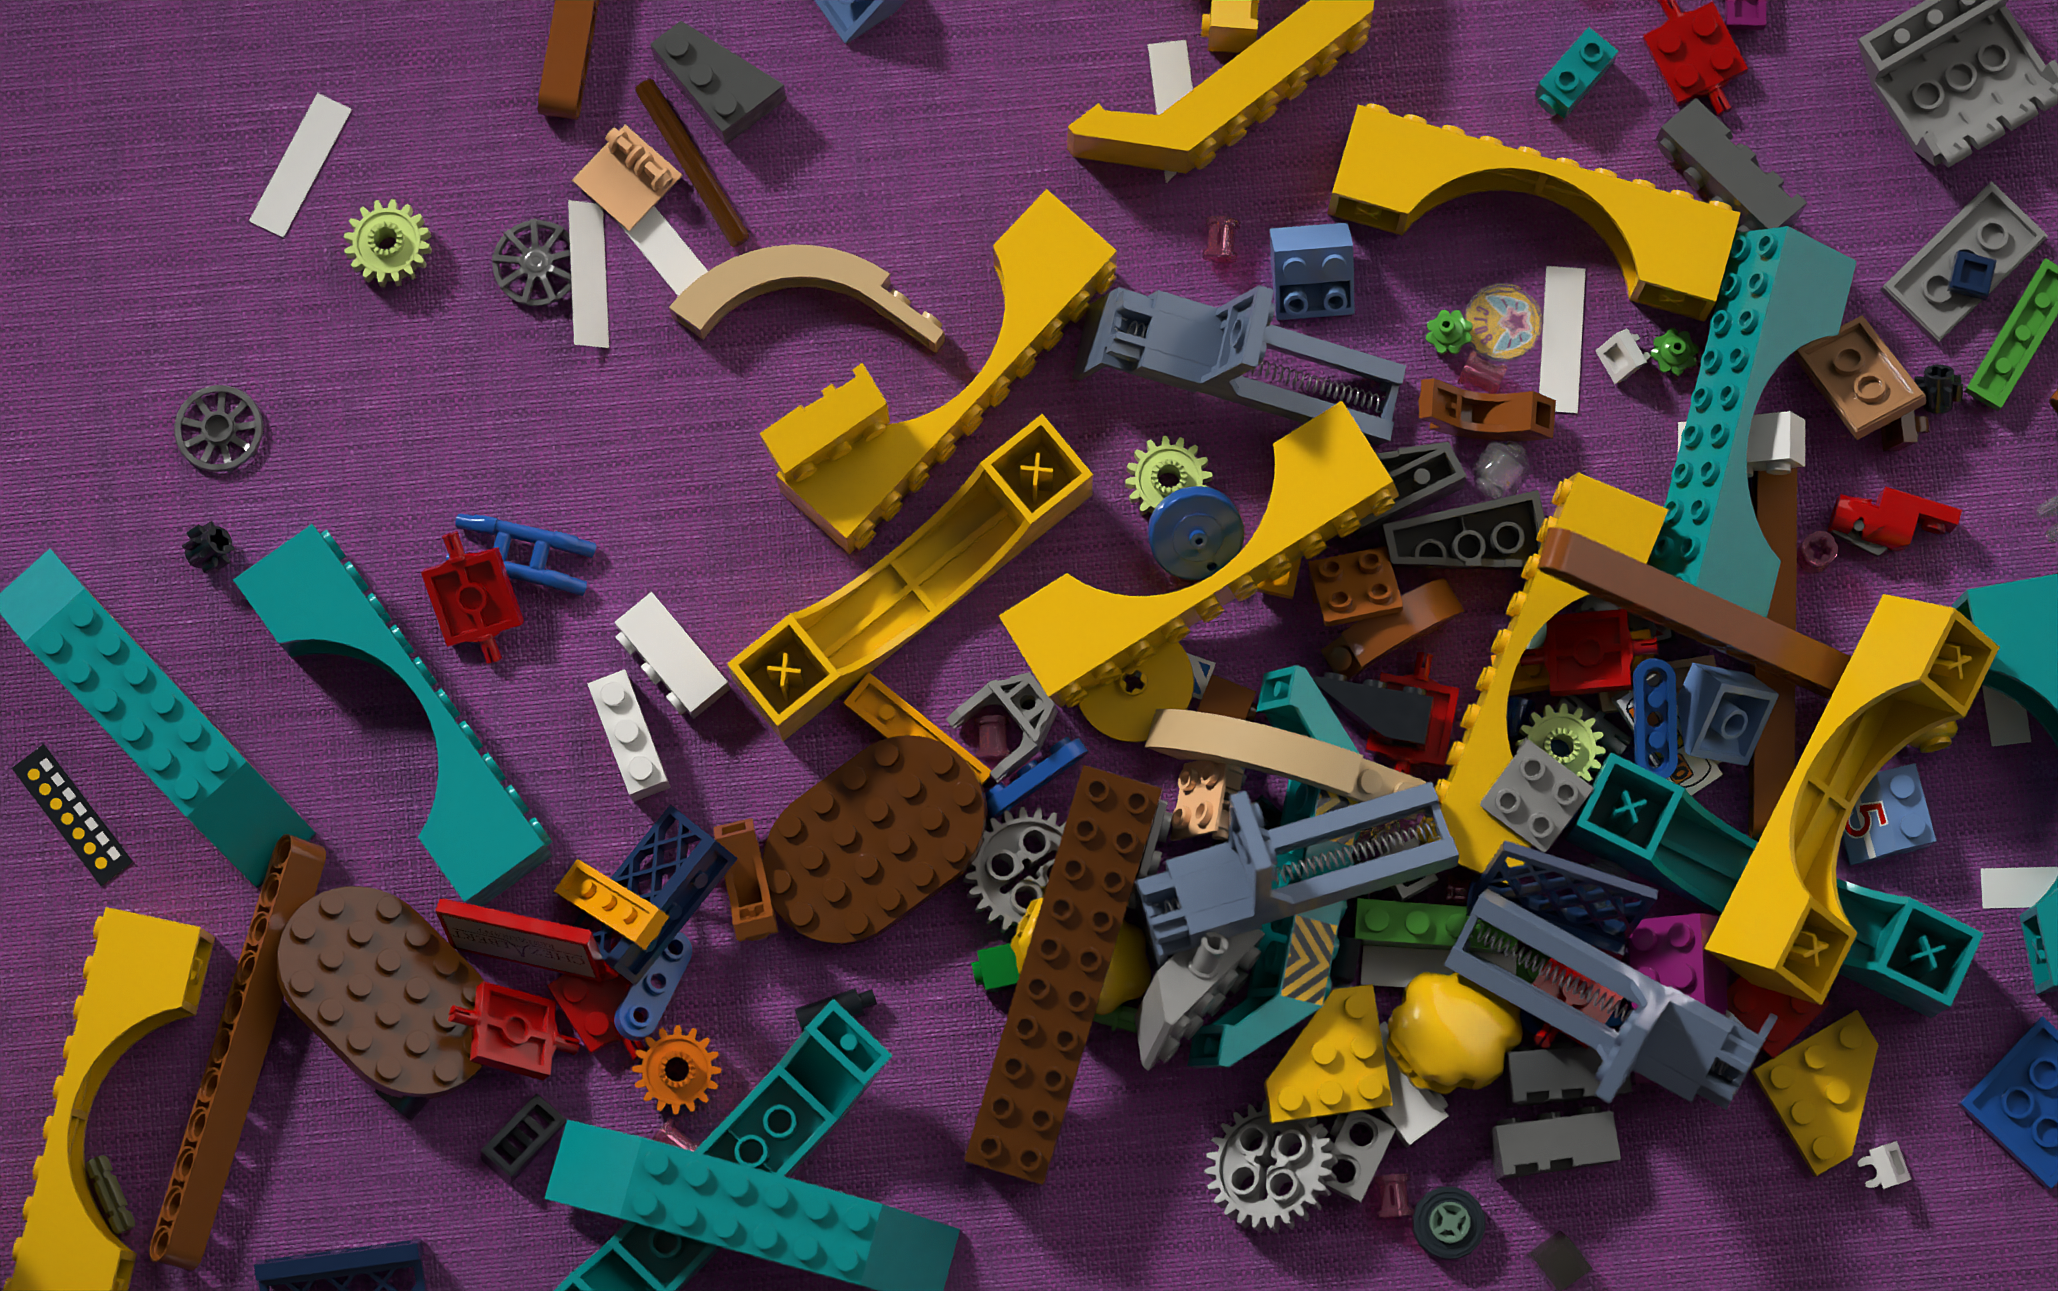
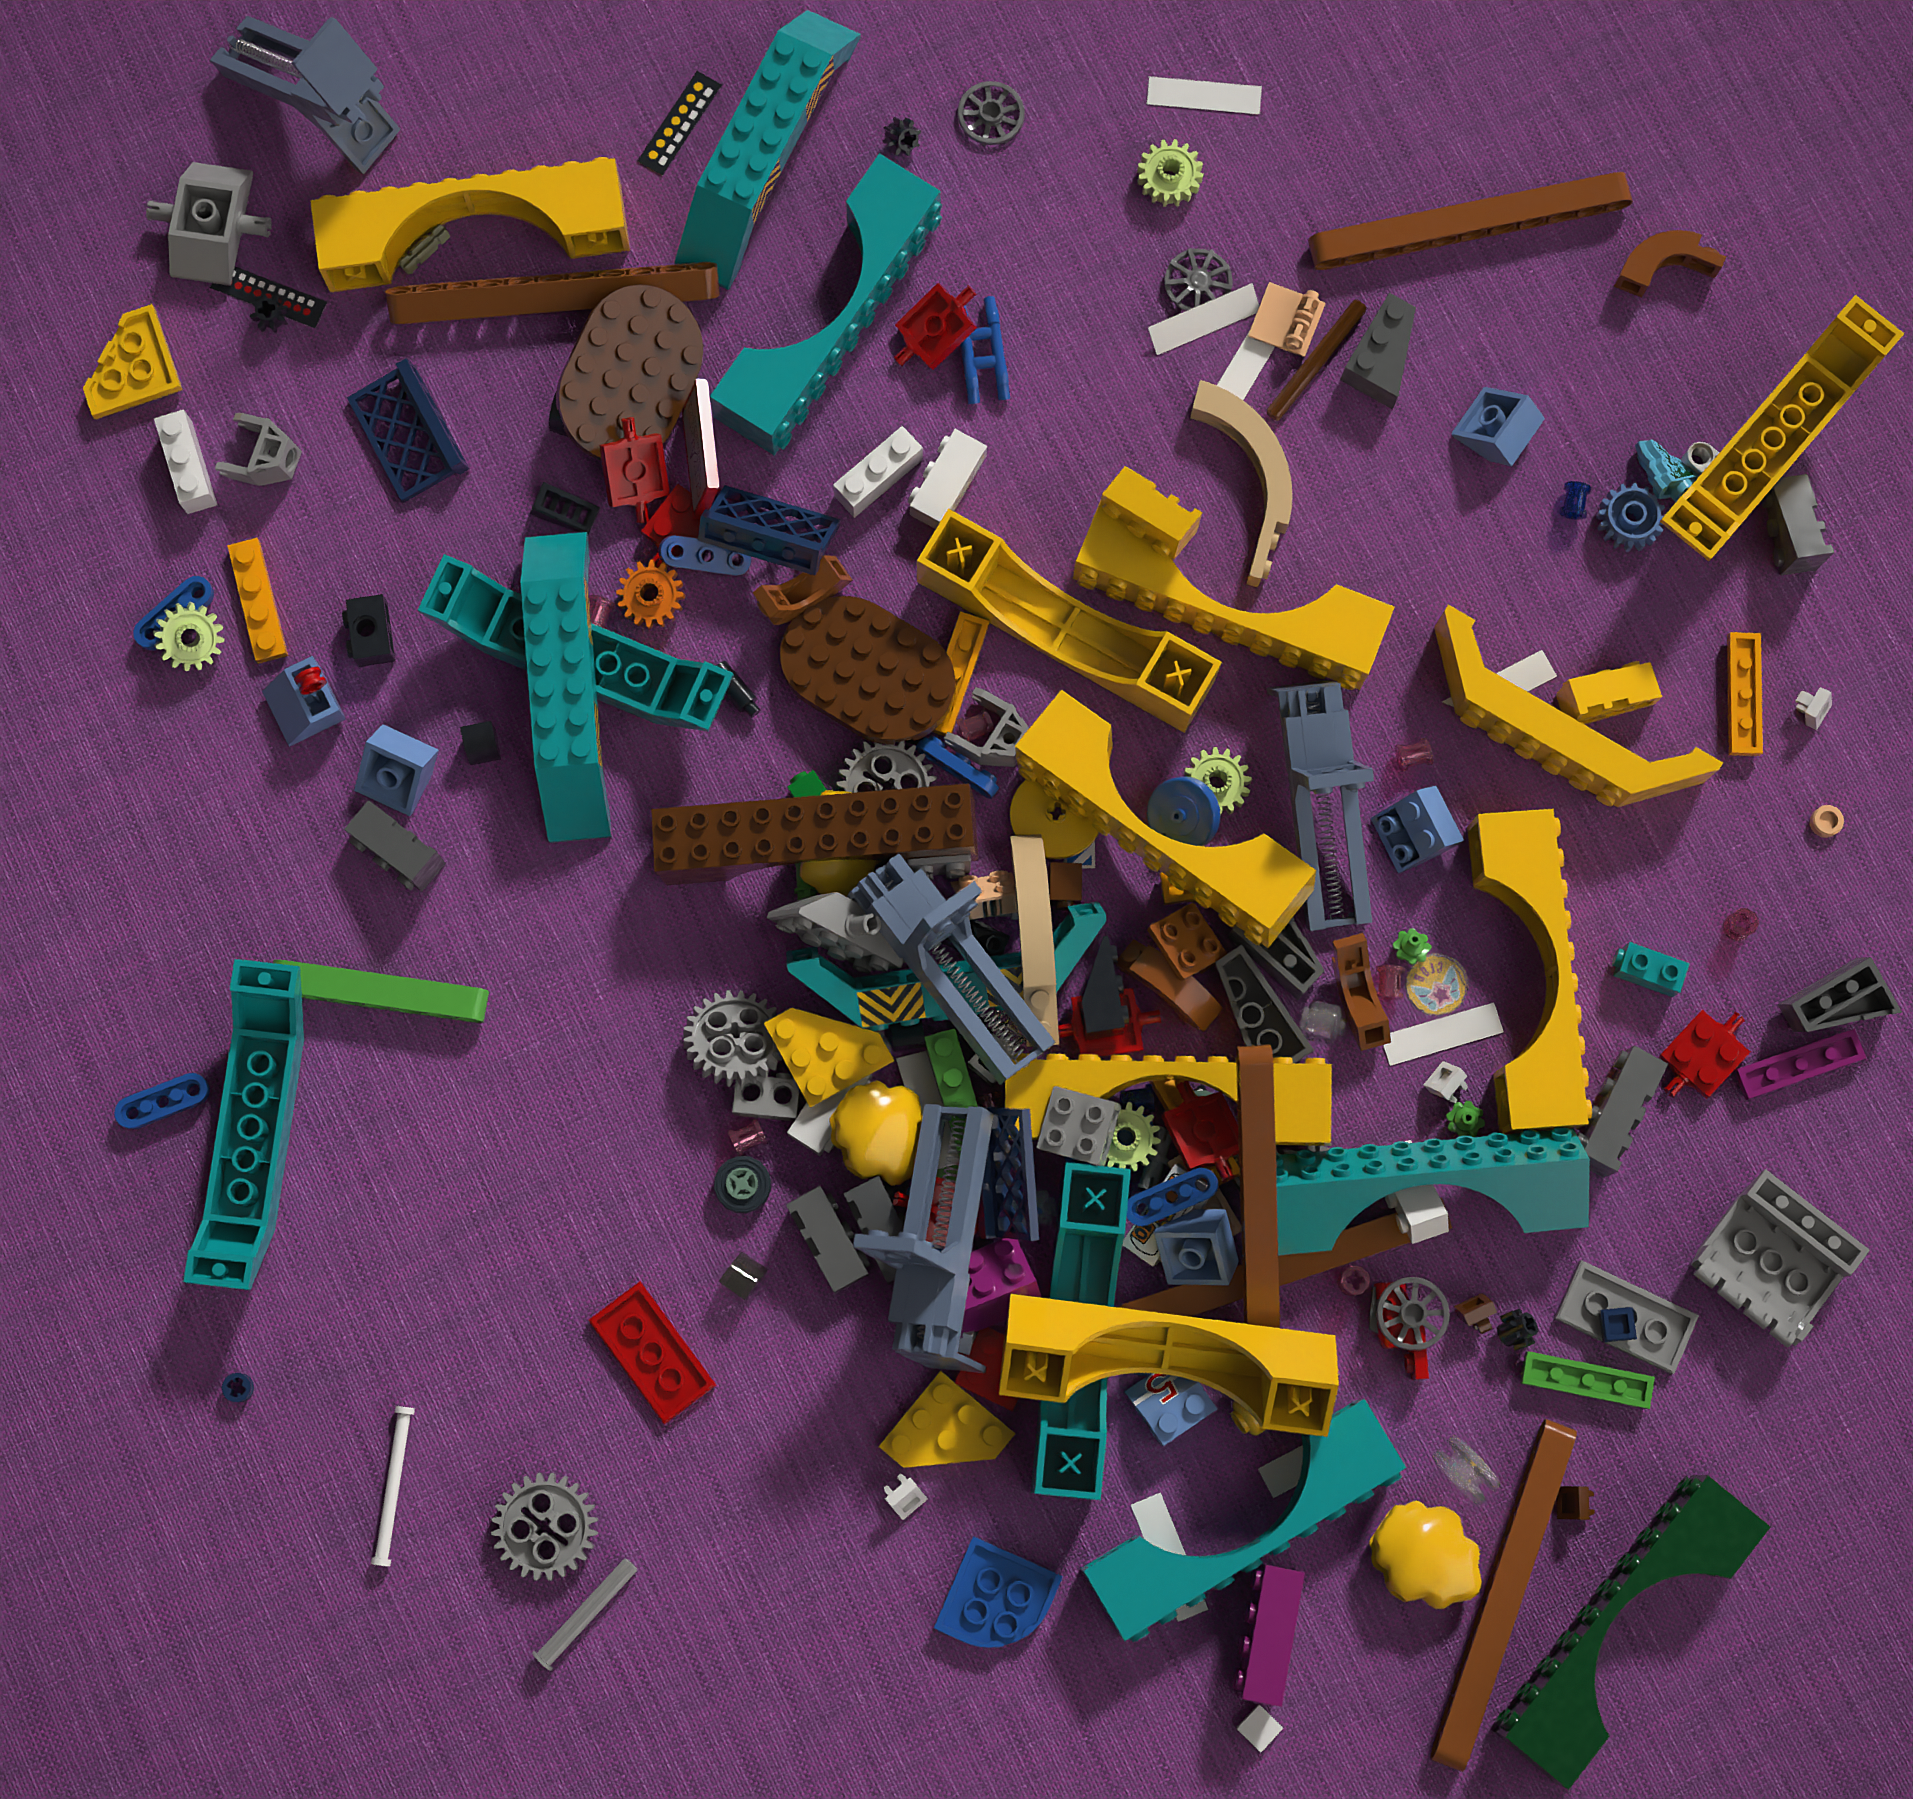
camera: 65 degrees right, 0 degrees up
(611, 904) = (747, 500): light orange plate -> none
(1860, 377) = (1501, 1265): medium nougat tile -> none
(1882, 499) = (1412, 1313): none -> flat silver wheel

